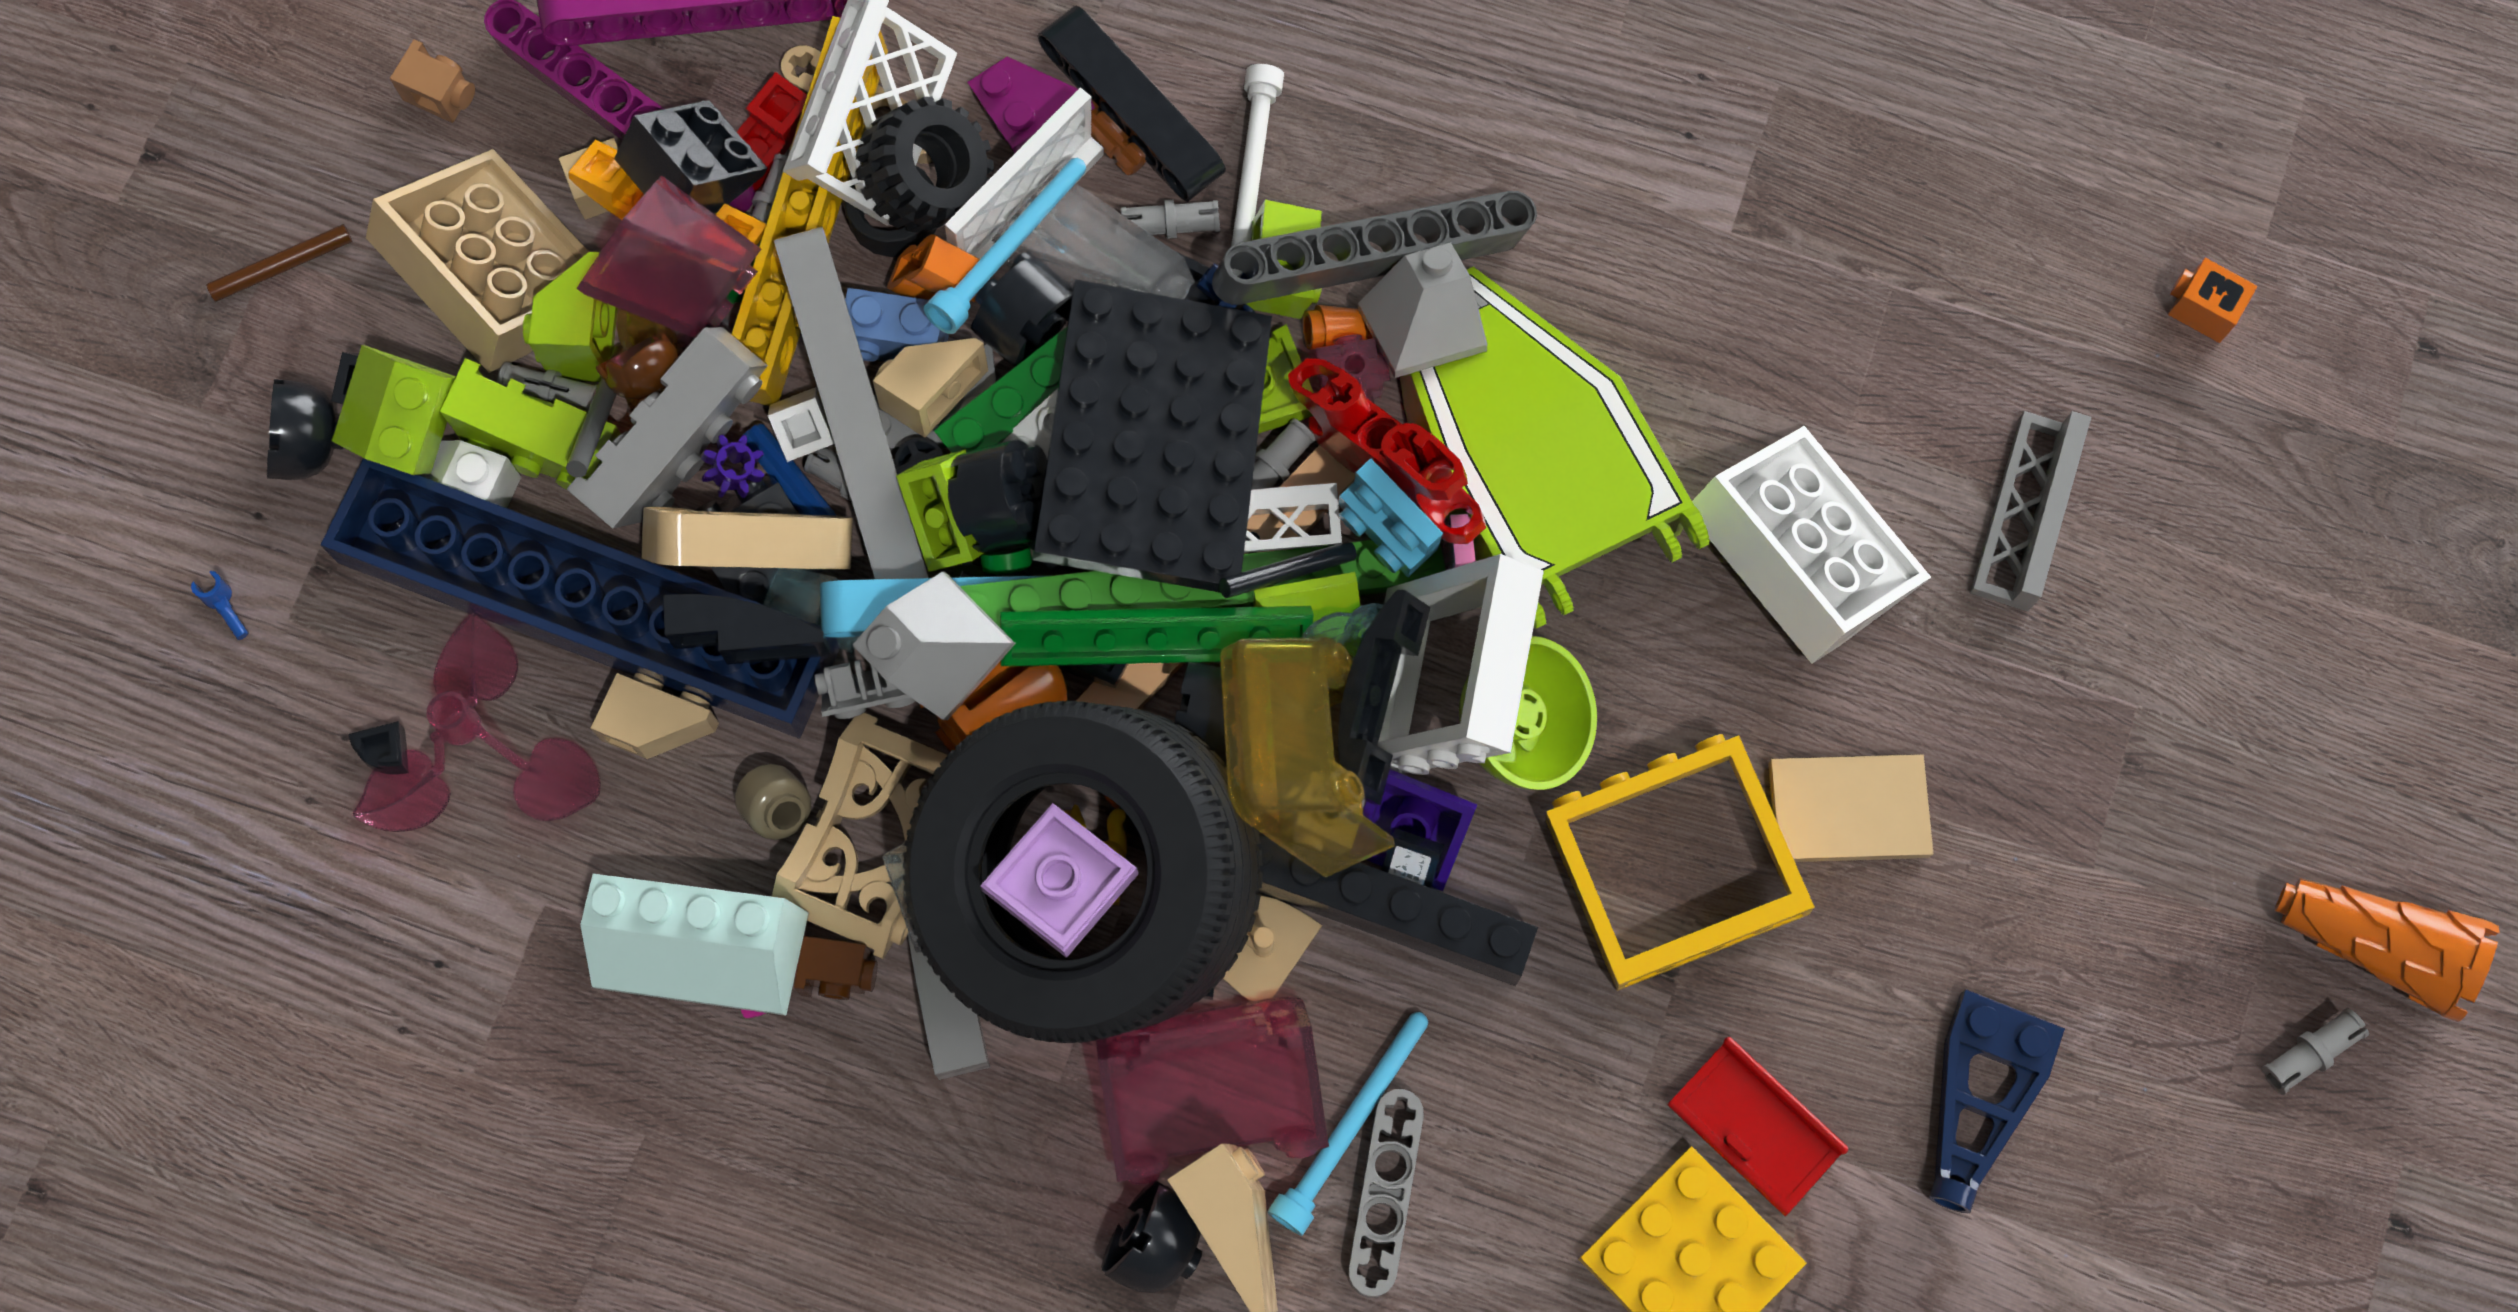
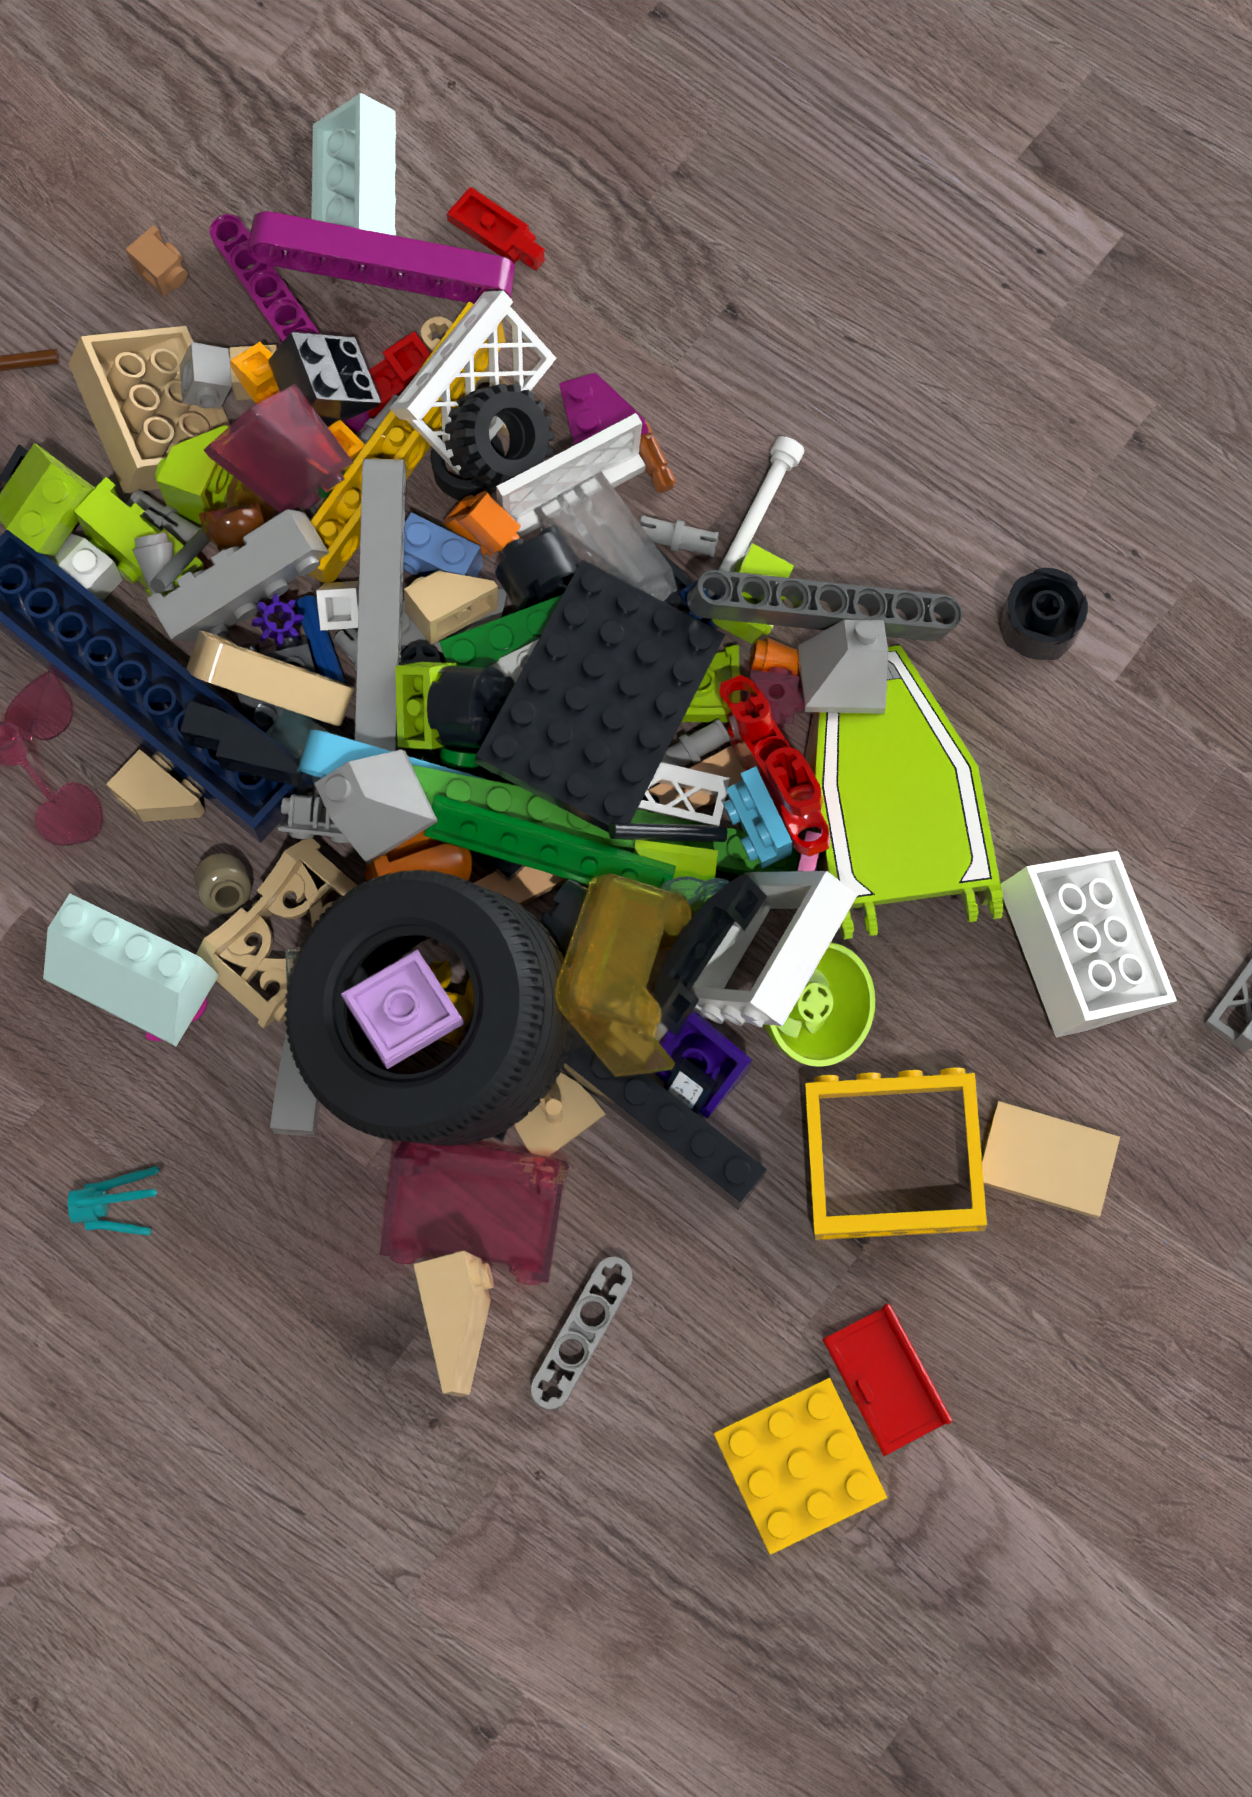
camera: 20 degrees right, 0 degrees up
(540, 201) = (205, 375): none -> light grey brick
(555, 436) = (152, 555): none -> light grey cone
(745, 1238) = (93, 1202): none -> teal plant
(834, 968) = (225, 1024): reddish brown brick -> none
(950, 307) = (479, 550): medium azure piece -> none
(1132, 102) = (679, 437): black beam -> none
(1155, 1243) = (390, 1312): black cylinder -> none
(1295, 1207) = (510, 1319): medium azure piece -> none
(1627, 178) = (1041, 635): none -> black brick
(2006, 1037) = (1107, 1377): dark blue plate -> none

